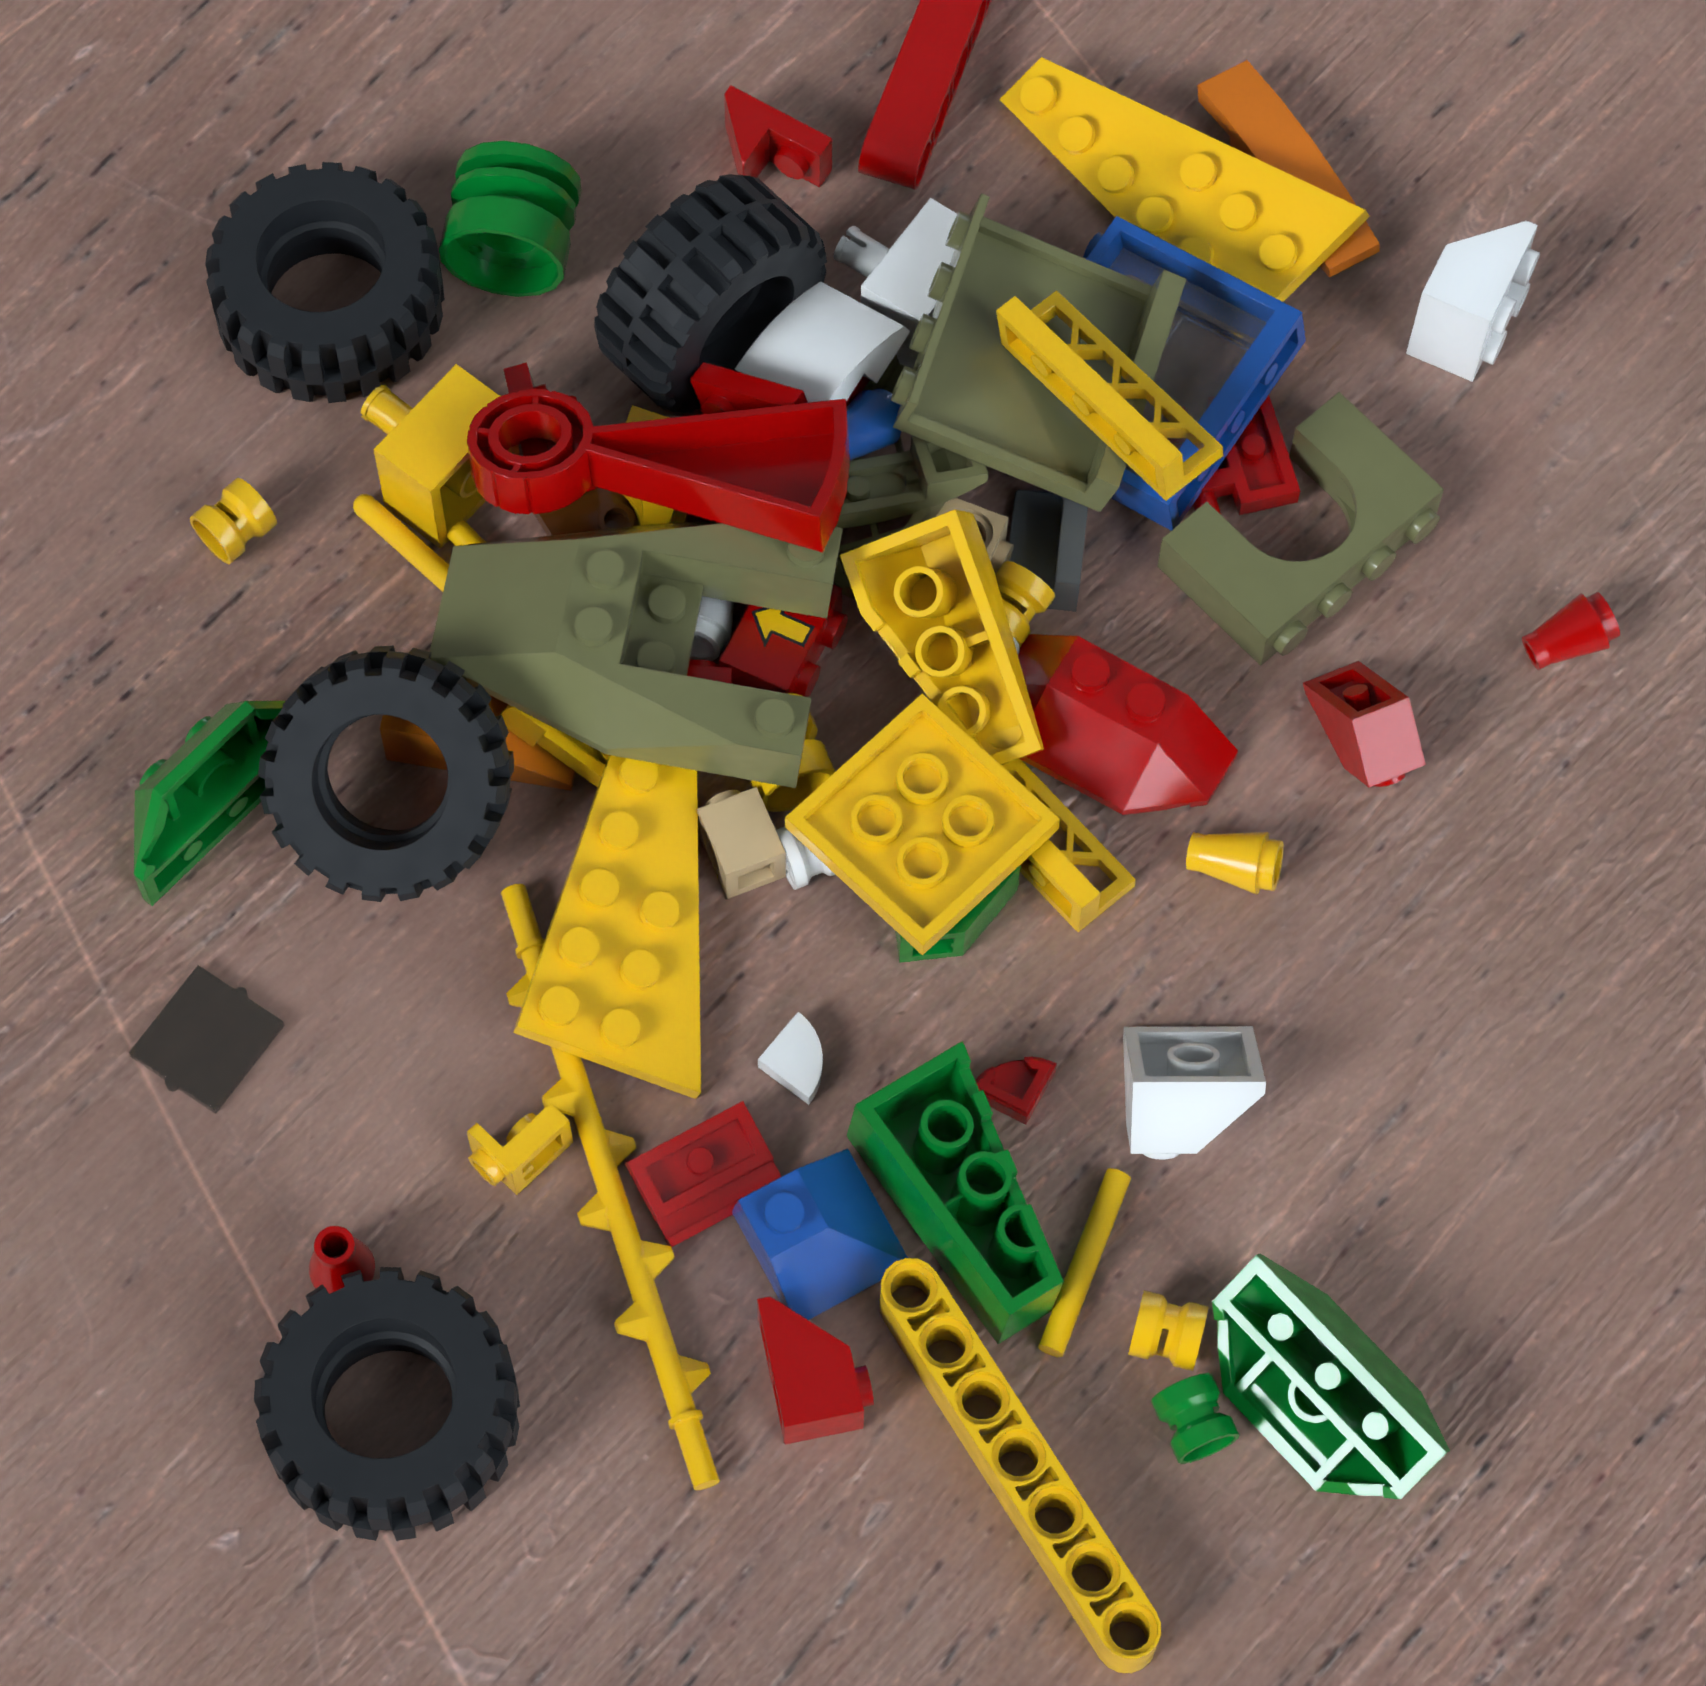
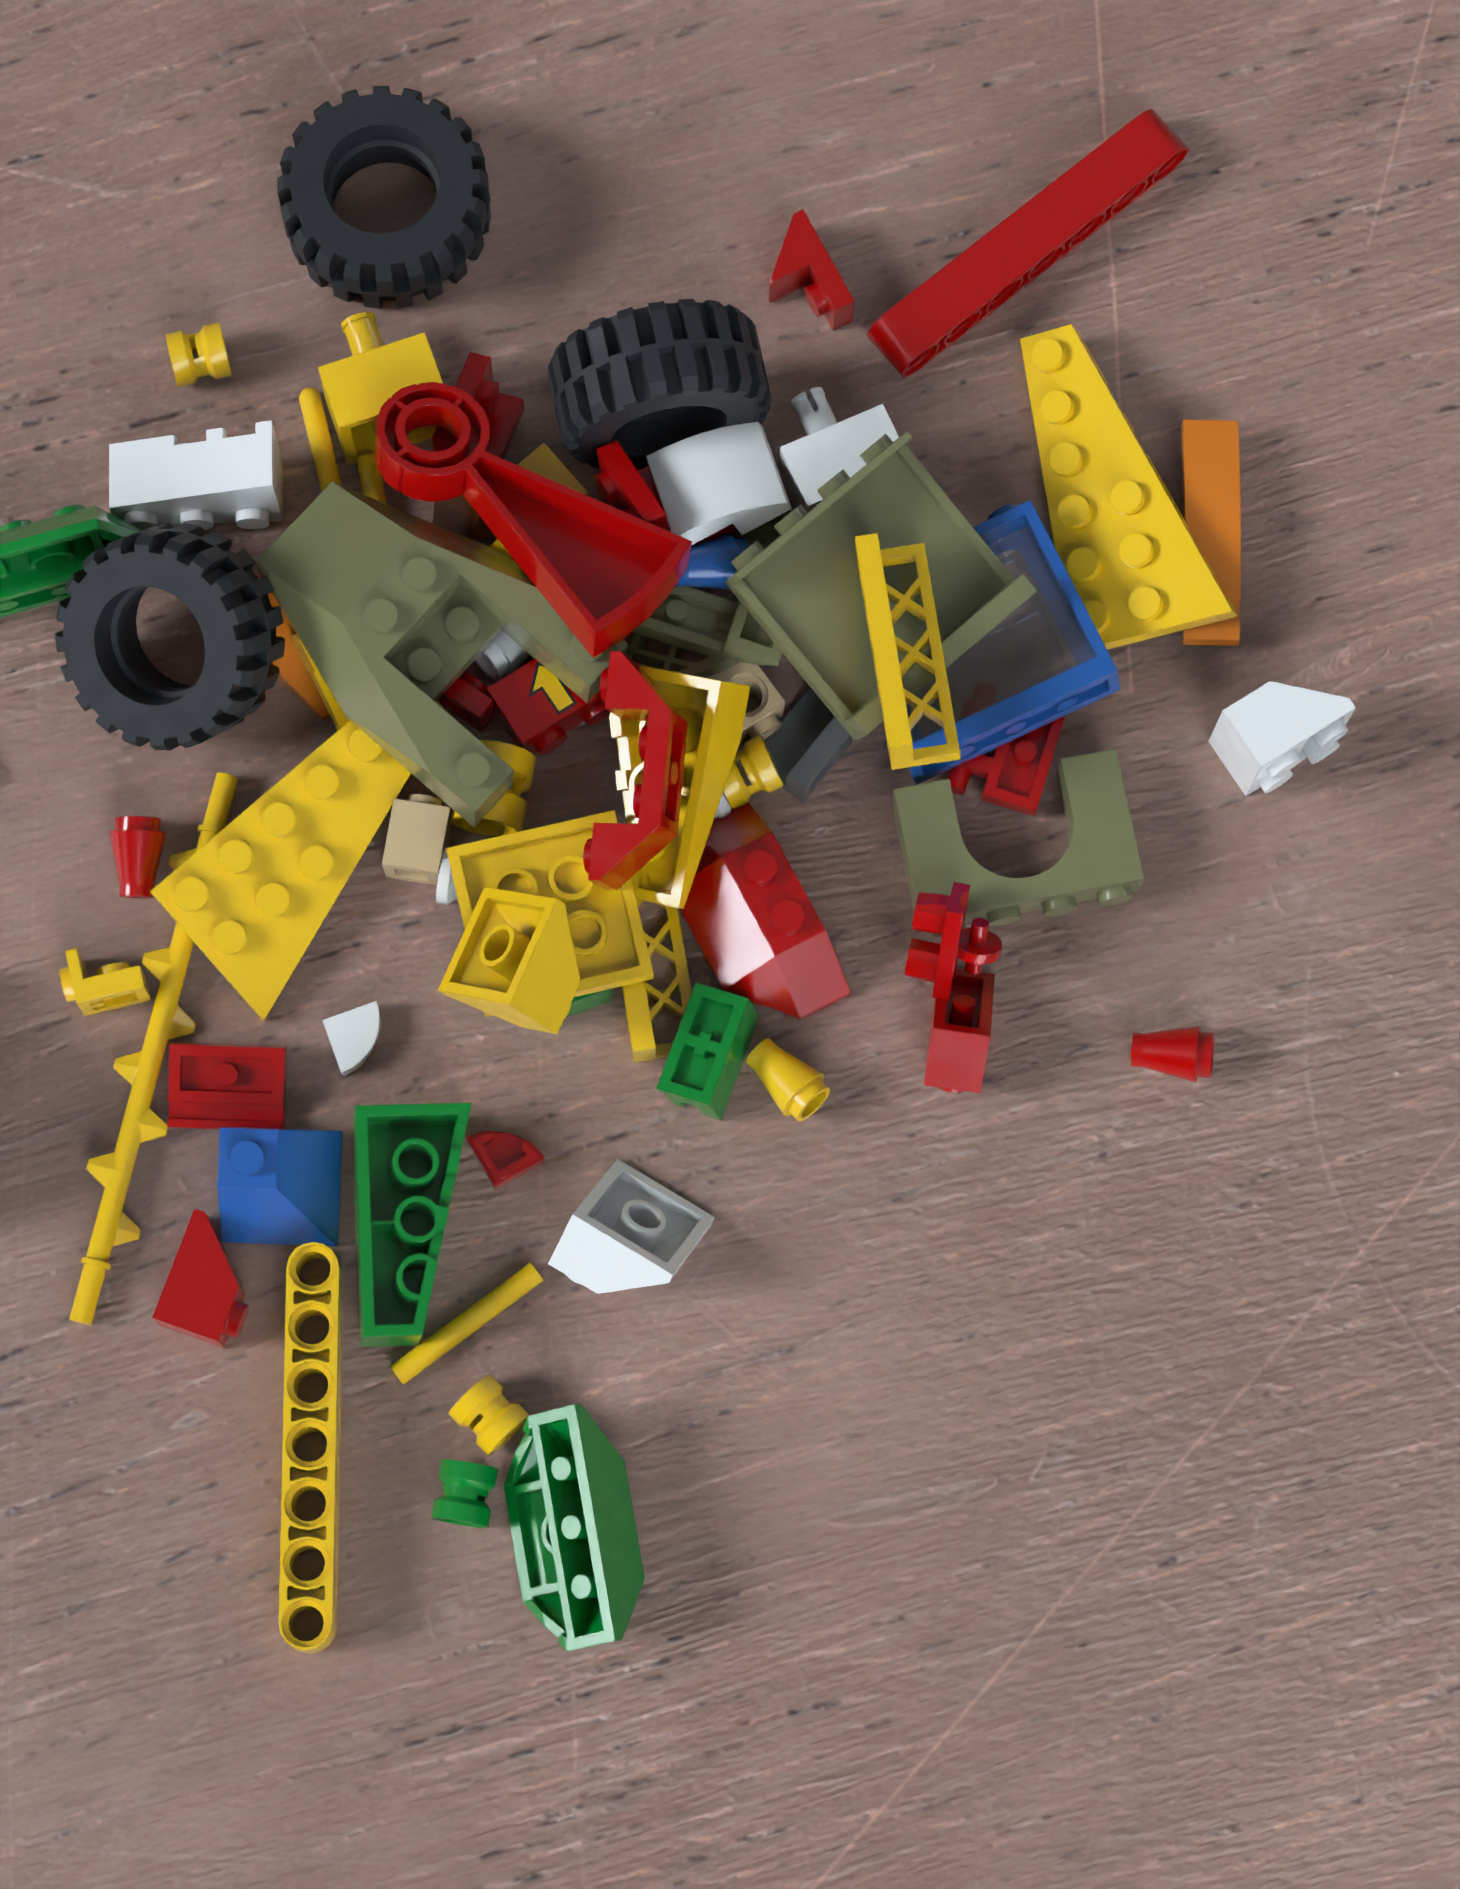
camera: 30 degrees right, 10 degrees up
(334, 610) = (198, 481): none -> white wedge
(473, 1009) = (137, 854): none -> red cone
(510, 219) = (557, 226): green wheel -> none
(927, 872) = (516, 960): none -> yellow slope
(964, 706) = (623, 849): none -> red slope
(1146, 872) = (708, 1050): none -> green hinge
(1299, 617) = (946, 917): none -> red hips

